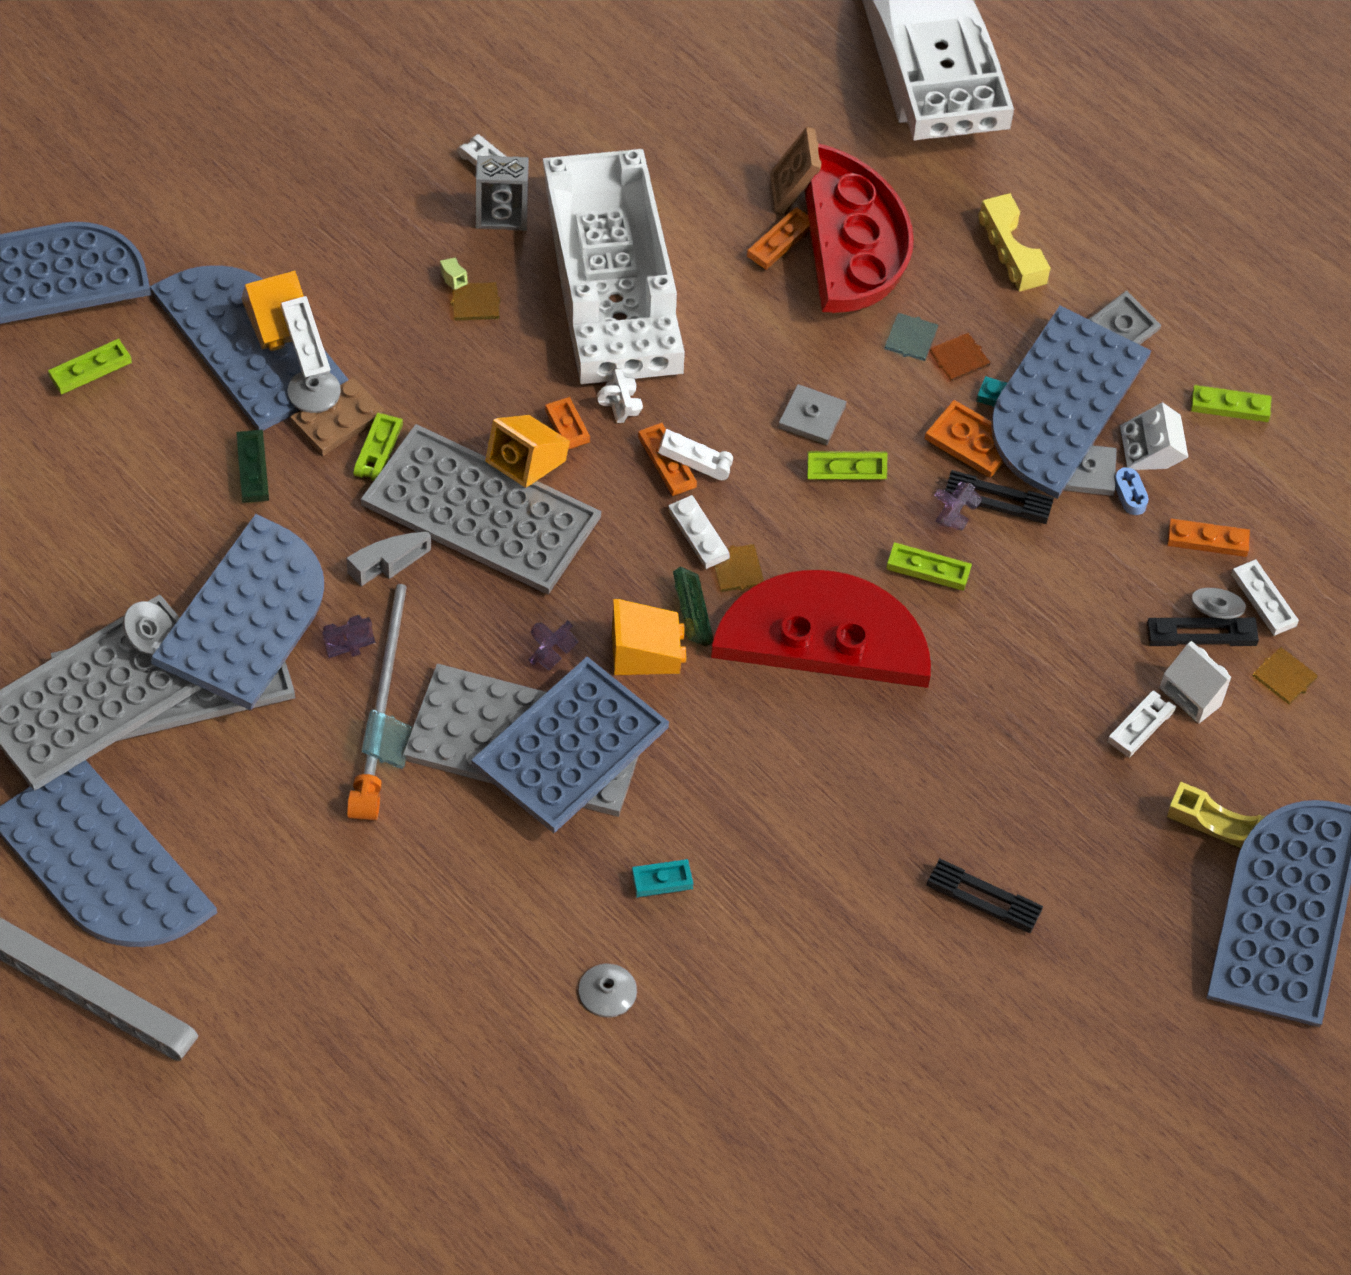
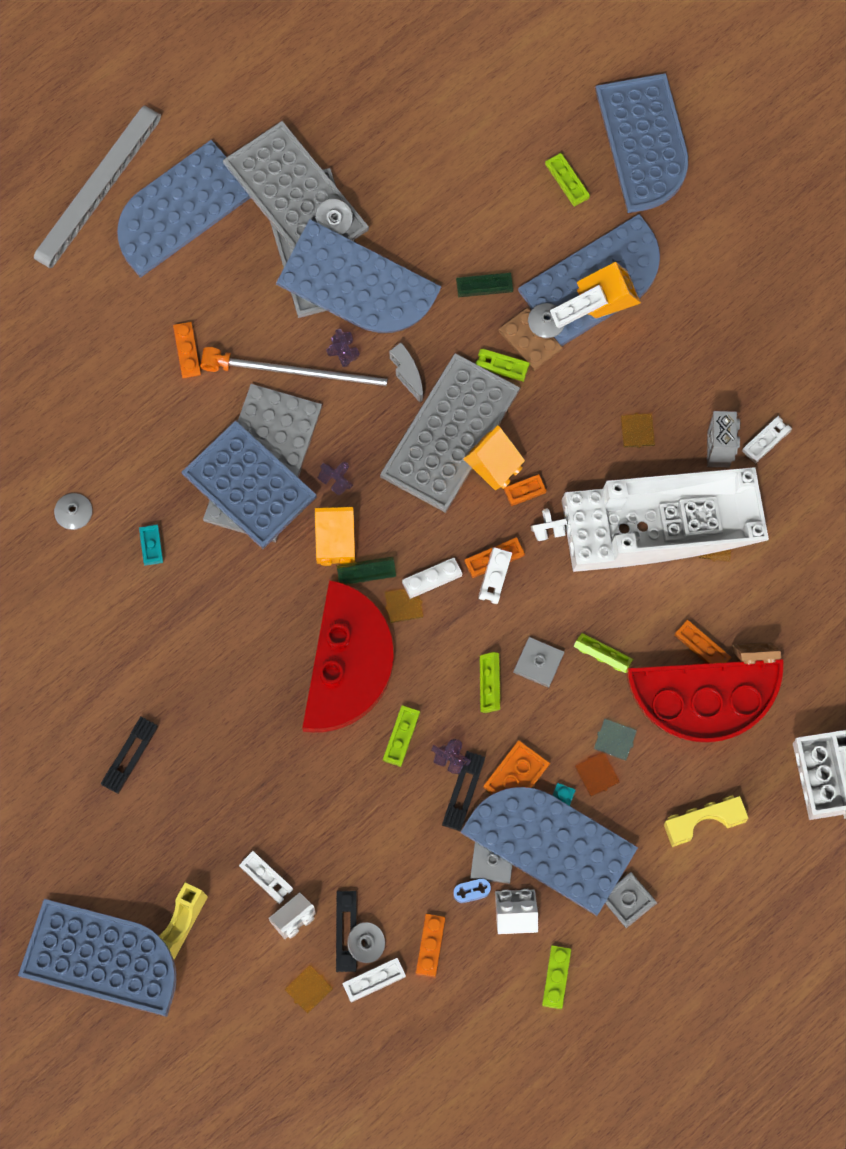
camera: 95 degrees right, 15 degrees up
(344, 842) = (186, 350): none -> orange plate
(386, 738) = (261, 372): clear light blue piece -> none
(453, 273) = (658, 412): yellowish green piece -> none
(797, 341) = (603, 653): none -> lime plate

